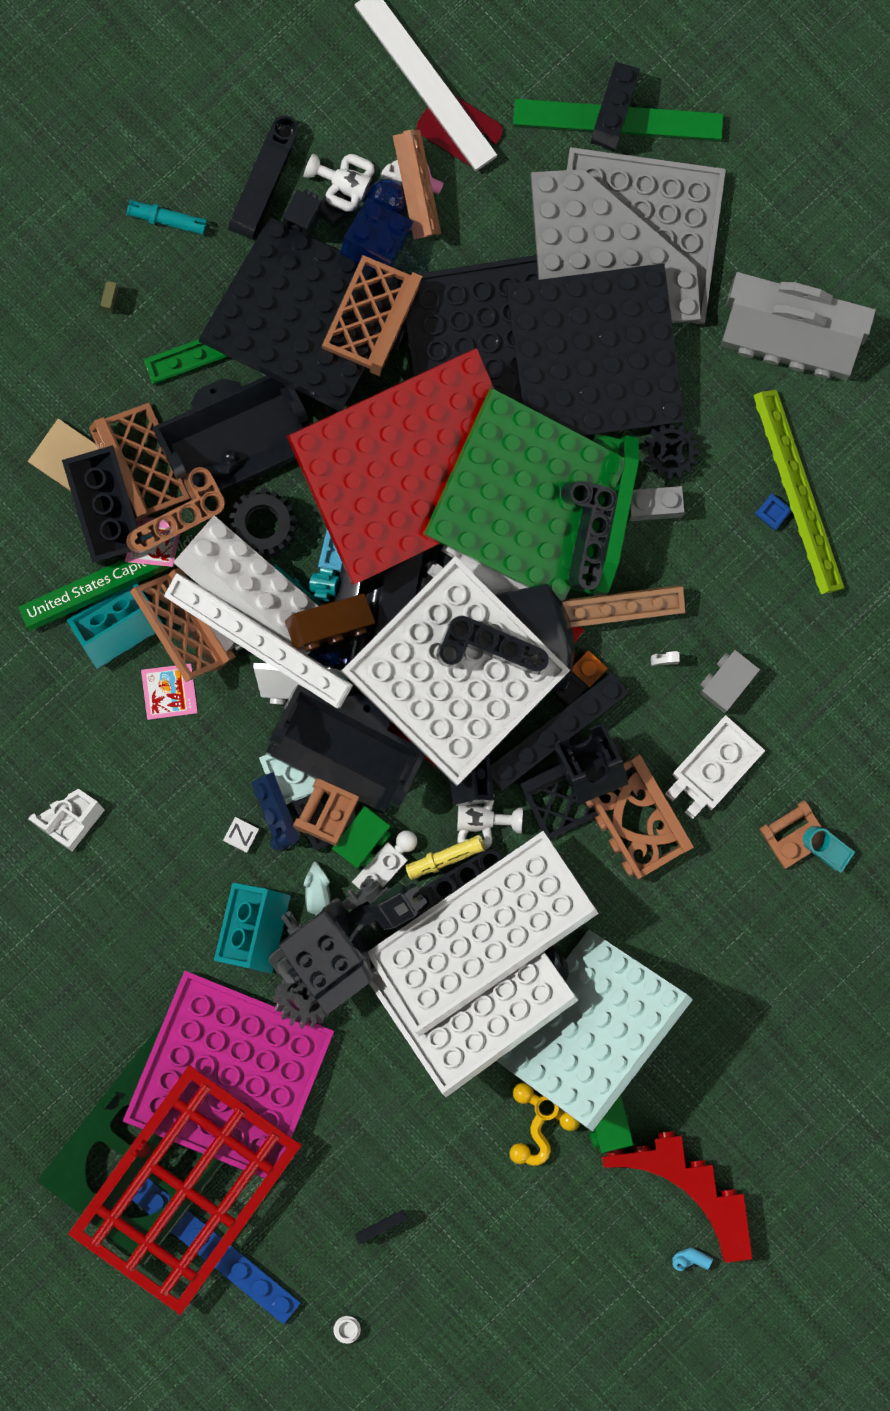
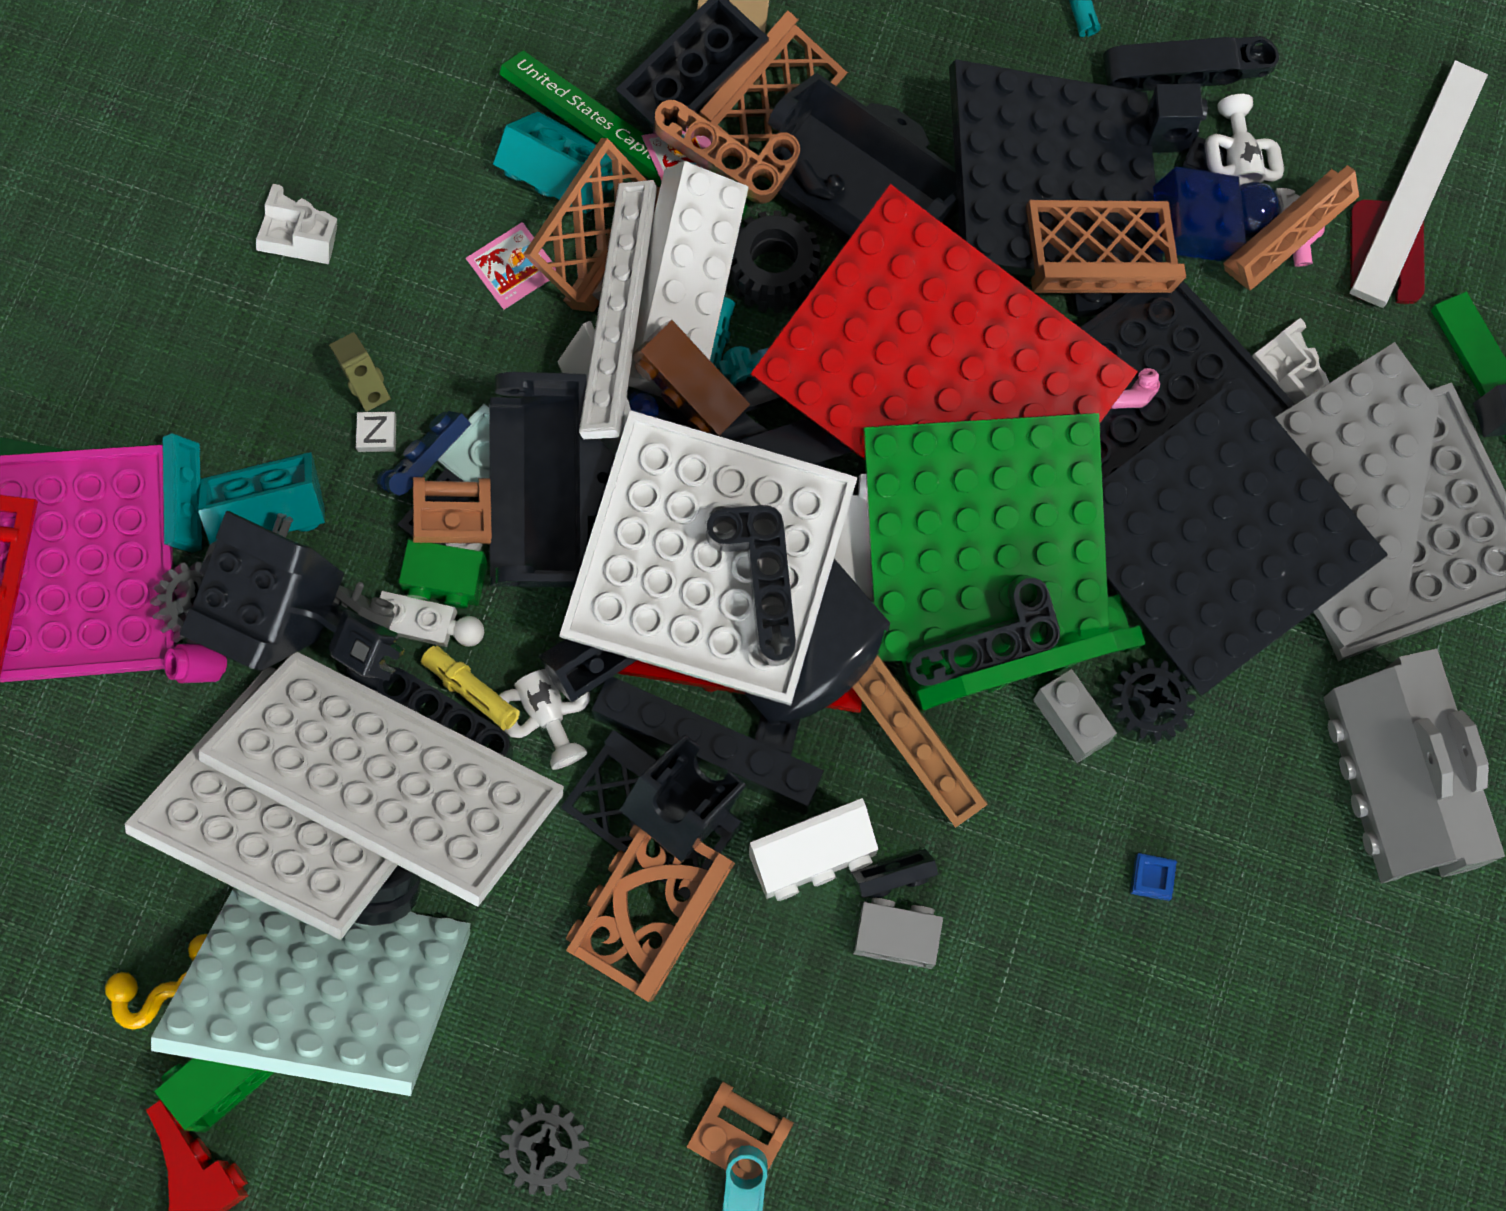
camera: 65 degrees right, 10 degrees down
(181, 361) = (916, 83): green tile -> none
(201, 824) = (362, 376): none -> olive piece
(221, 975) = (181, 493): none -> teal tile
(317, 889) = (354, 551): light aqua animal -> none
(342, 1019) = (194, 664): none -> dark pink brick
(475, 340) = (1141, 392): none -> bright pink arm
(505, 238) = (1292, 363): none -> white slope
(589, 669) = (814, 745): orange plate -> none
(656, 704) = (814, 850): none -> white slope
(669, 658) = (884, 838): white tile -> none
(692, 663) = (907, 870): none -> black plate
(715, 766) = (775, 976): white tile -> none
(736, 959) = (527, 1144): none -> dark grey gear
(798, 492) = (1198, 896): lime plate -> none

